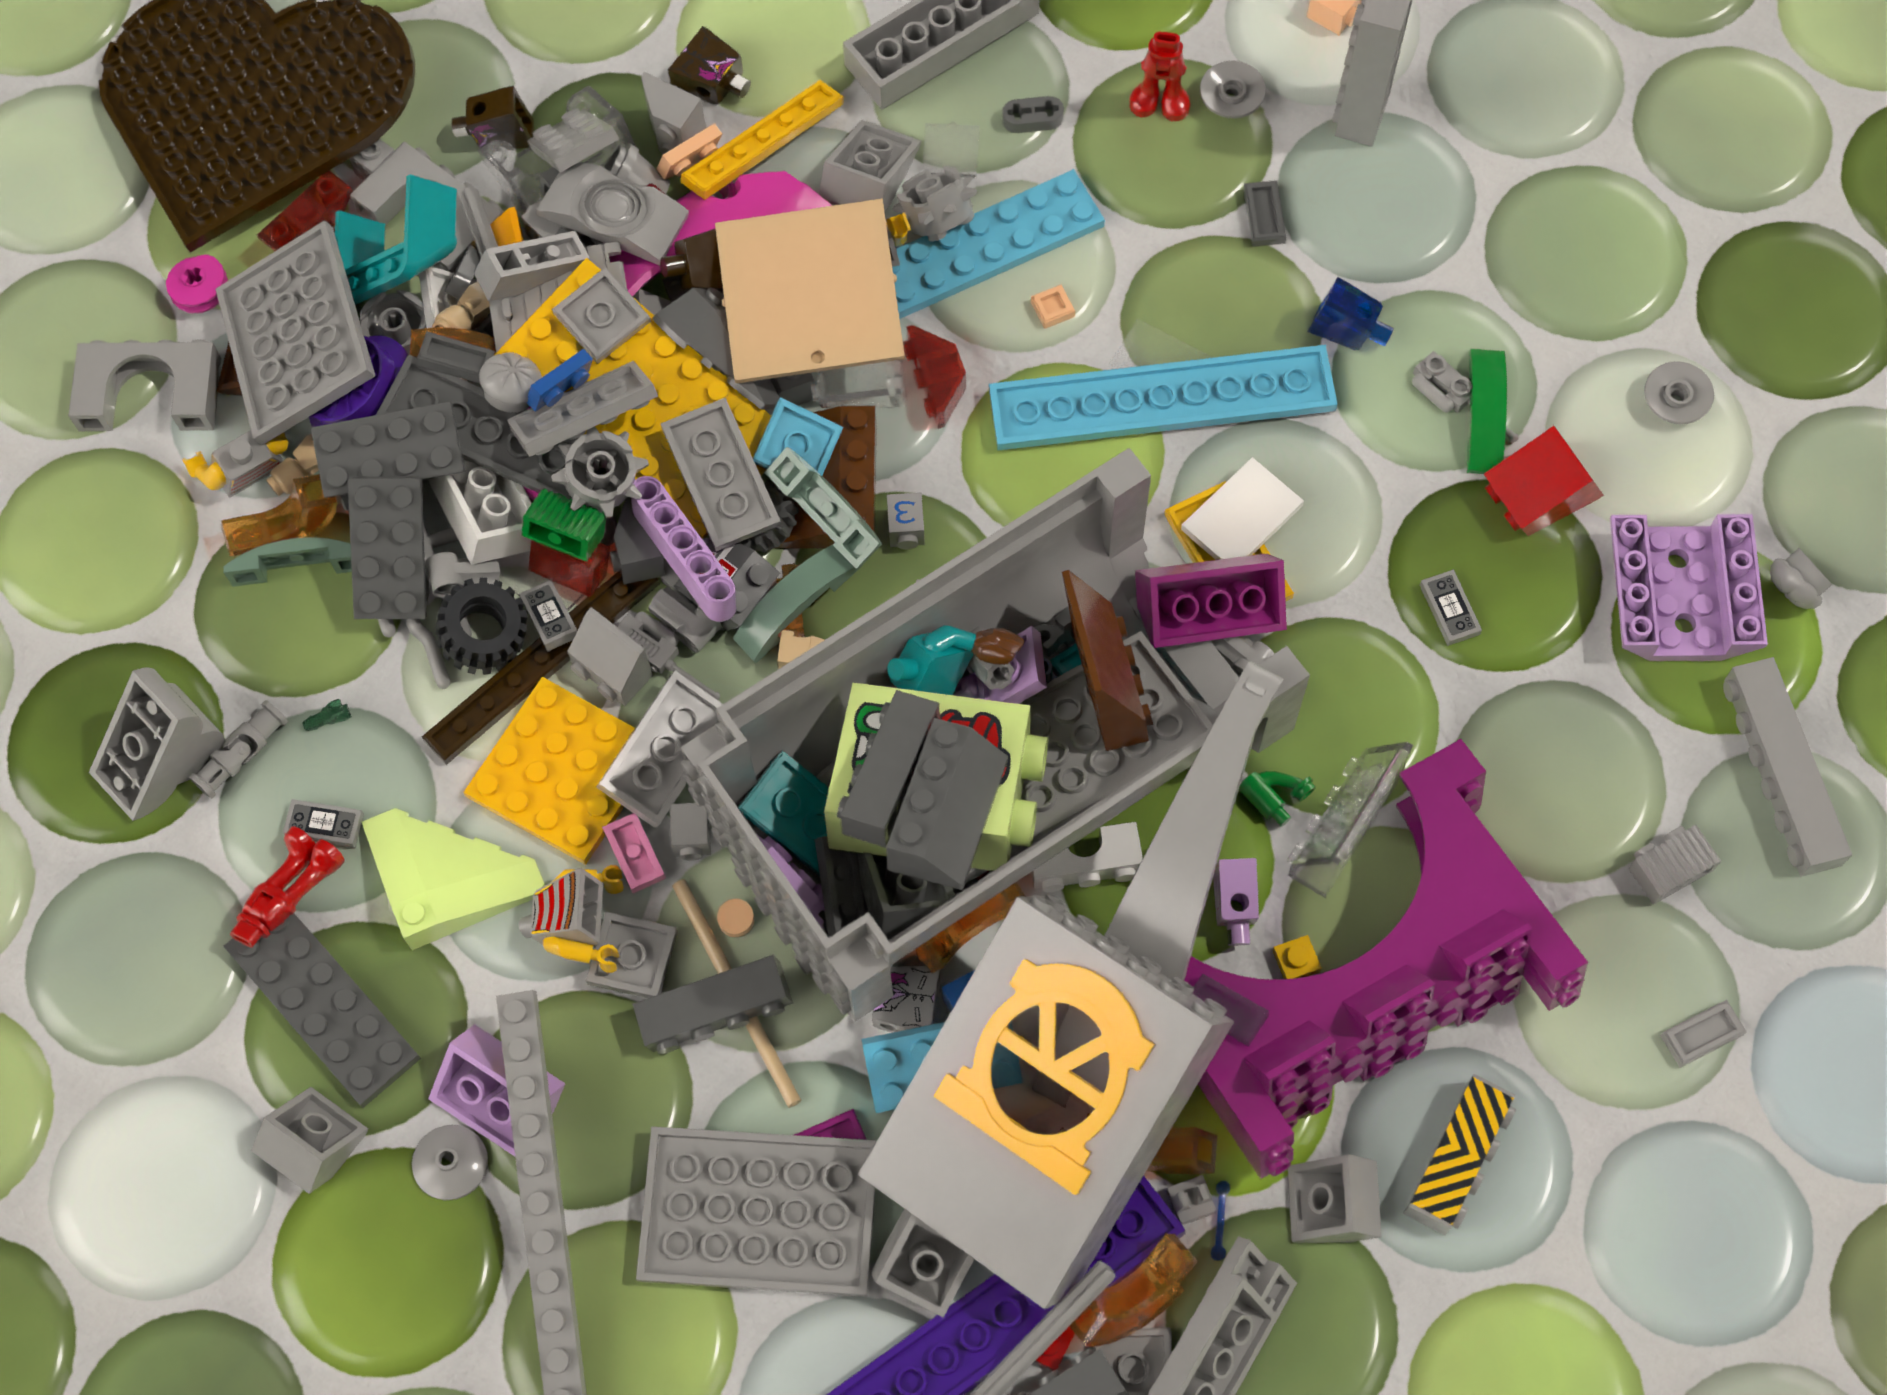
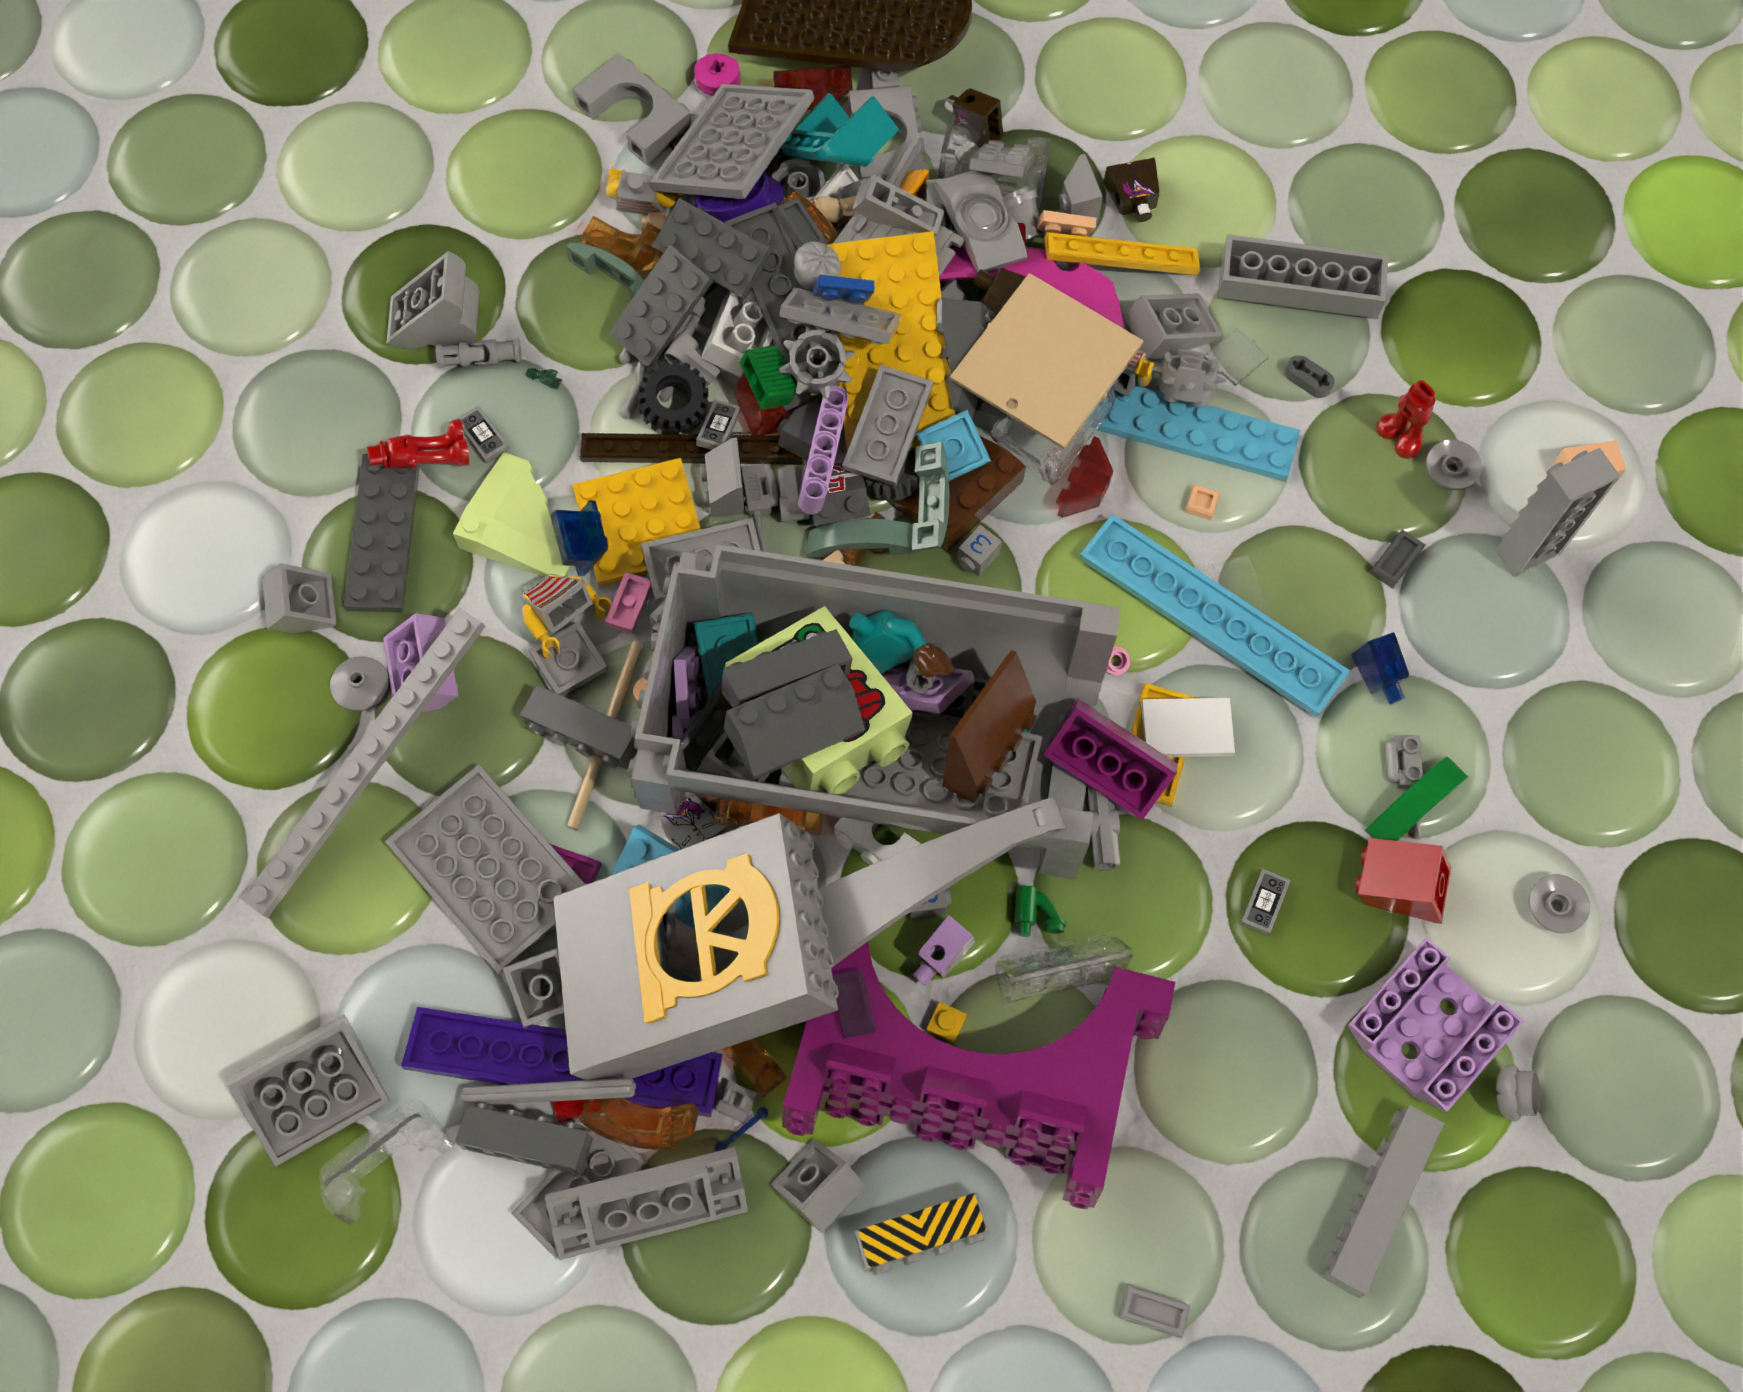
camera: 40 degrees right, 0 degrees up
(531, 829) = (580, 536): none -> clear blue bracket
(601, 315) = (908, 272): light grey tile -> none
(1674, 863) = (1244, 1189): light grey brick -> none

